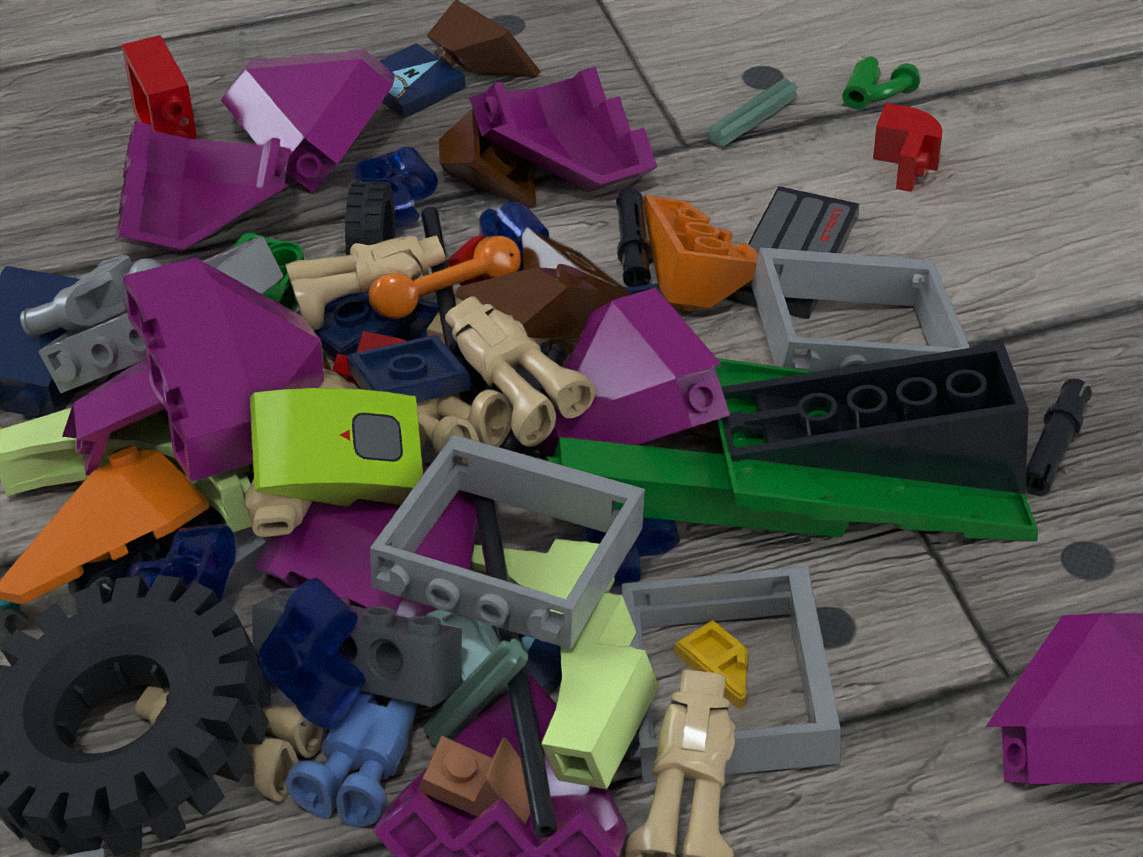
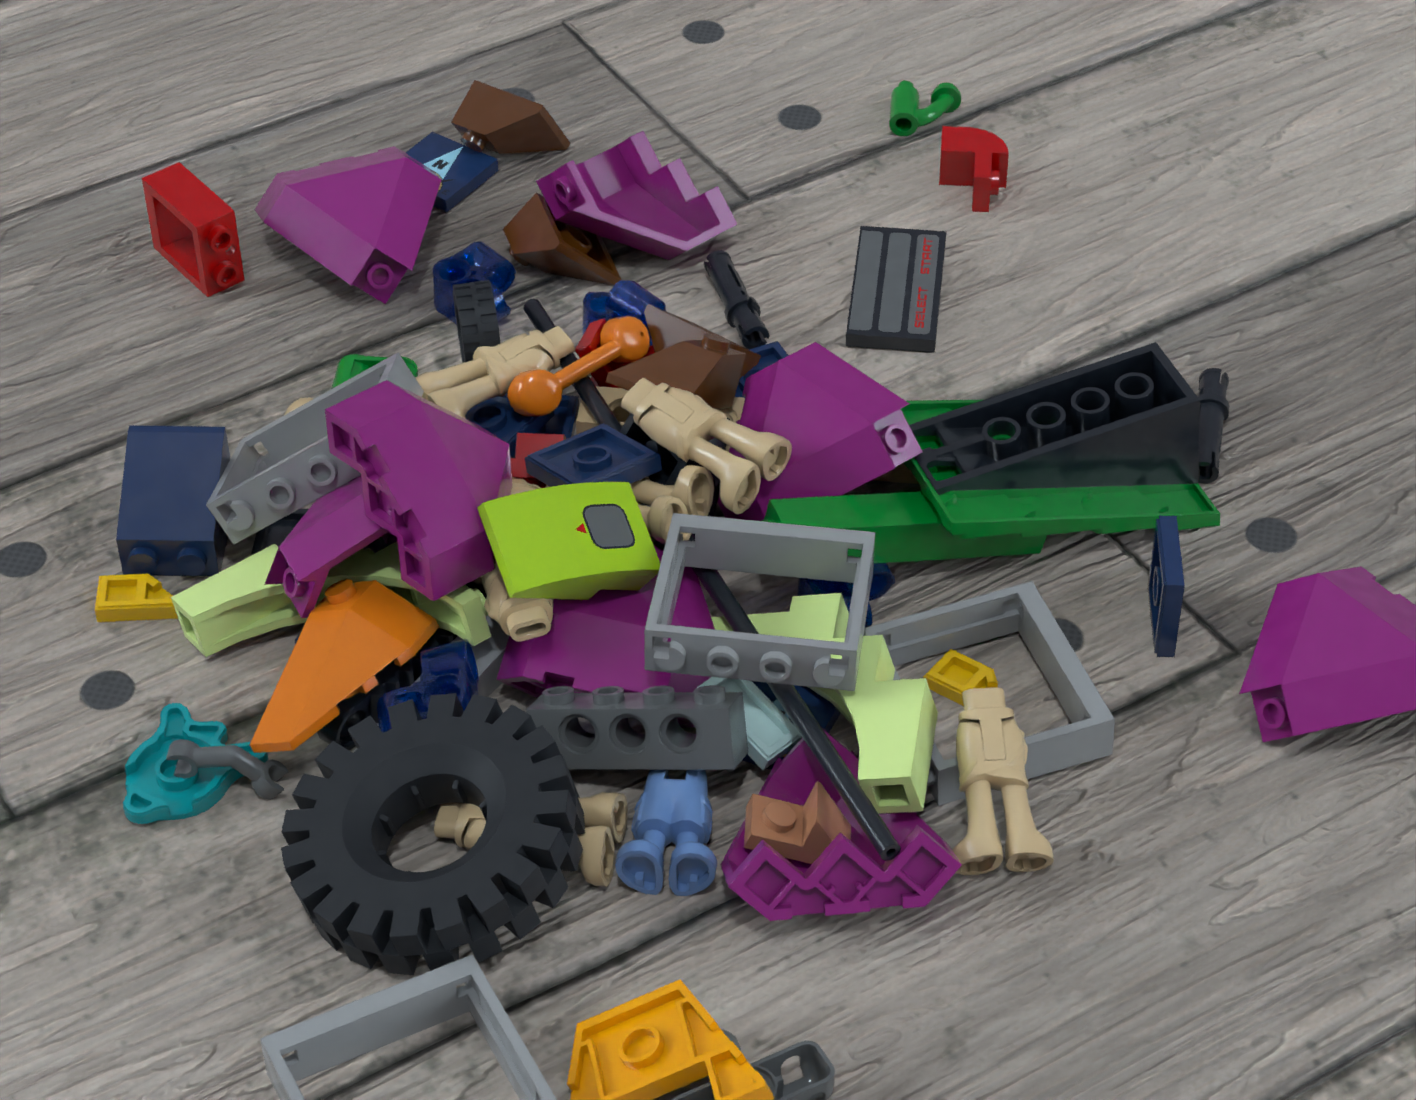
camera: 15 degrees left, 0 degrees up
(88, 301) = (245, 438): light grey connector -> none
(192, 187) = (267, 320): magenta panel -> none
(318, 676) = (623, 765): clear blue piece -> none
(476, 691) = (771, 749): sand green axle -> none
(692, 258) = (806, 306): orange wedge -> none
(752, 113) = (805, 155): sand green axle -> none
(850, 280) = (976, 307): light grey window -> none
(946, 596) = (1165, 586): none -> dark blue tile

